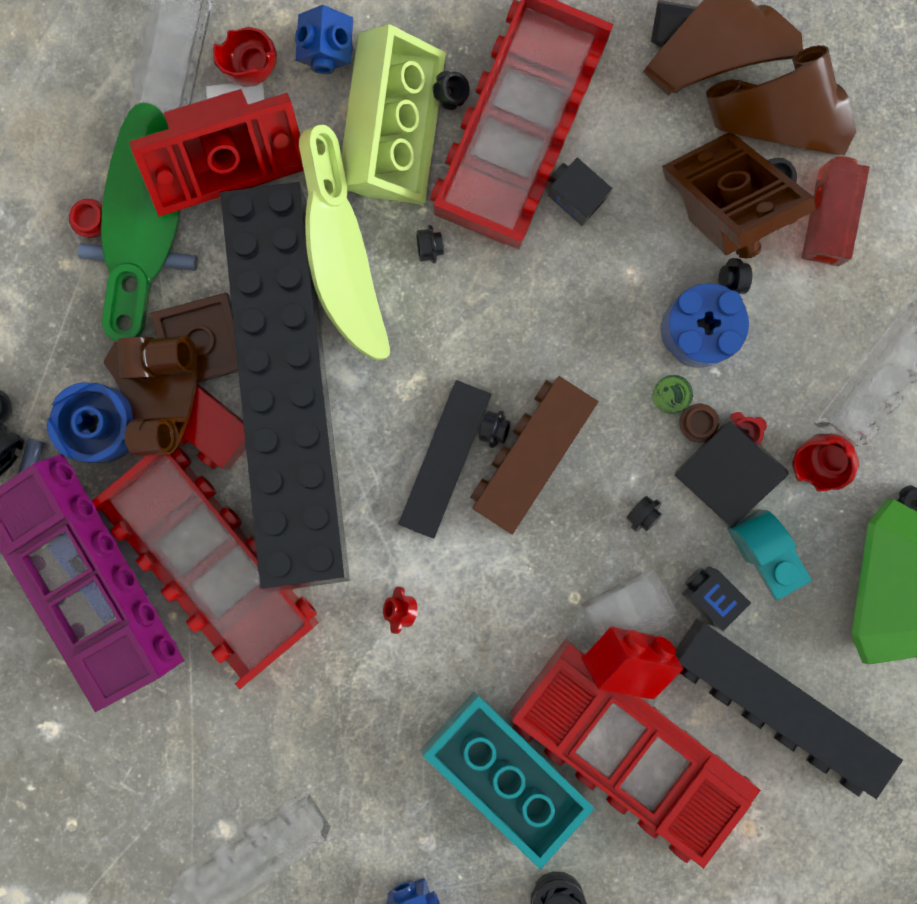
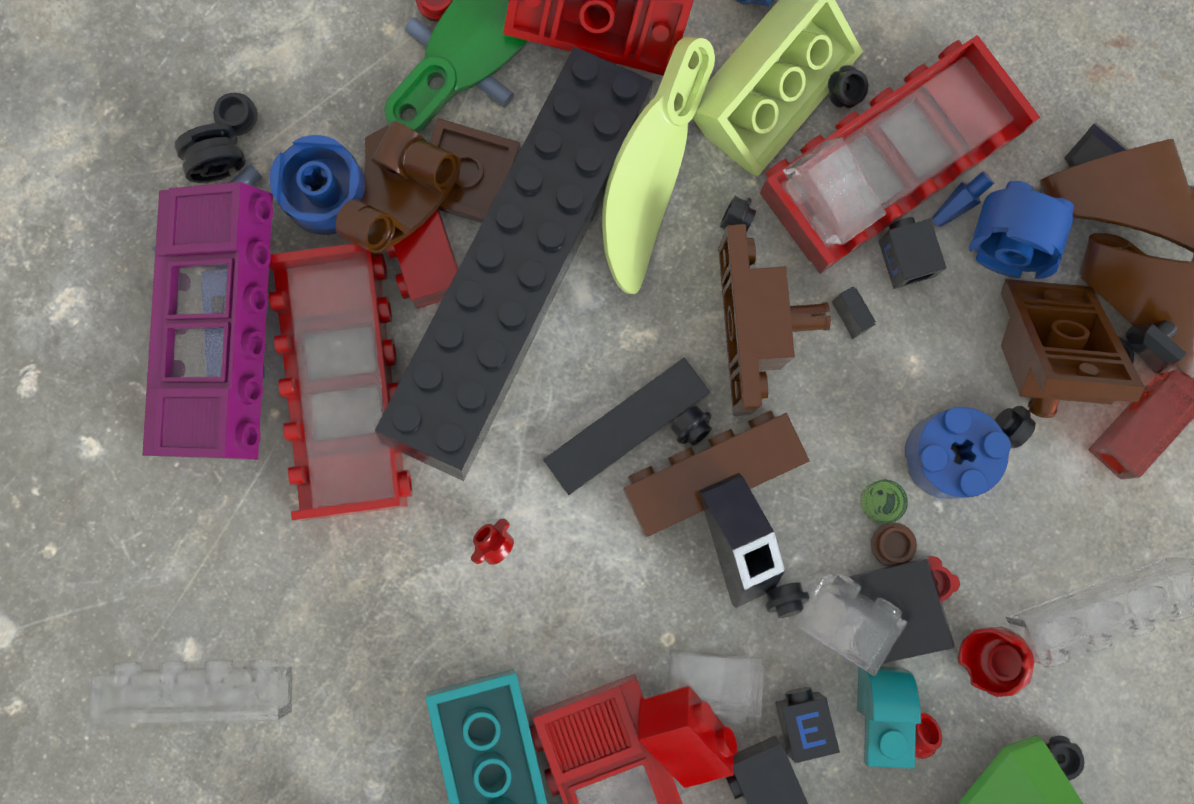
camera: 30 degrees right, 5 degrees down
(491, 183) = (833, 192): none -> clear brick
(494, 317) = (758, 319): none -> reddish brown brick
(563, 264) = (853, 312): none -> black tile
(583, 492) = (742, 539): none -> black slope
(592, 123) = (963, 199): none -> blue bar
(652, 123) = (1022, 231): none -> blue brick
(702, 502) = (851, 622): none -> clear brick
(804, 149) = (1155, 345): none -> black piece
(808, 550) = (927, 737): none -> red plate

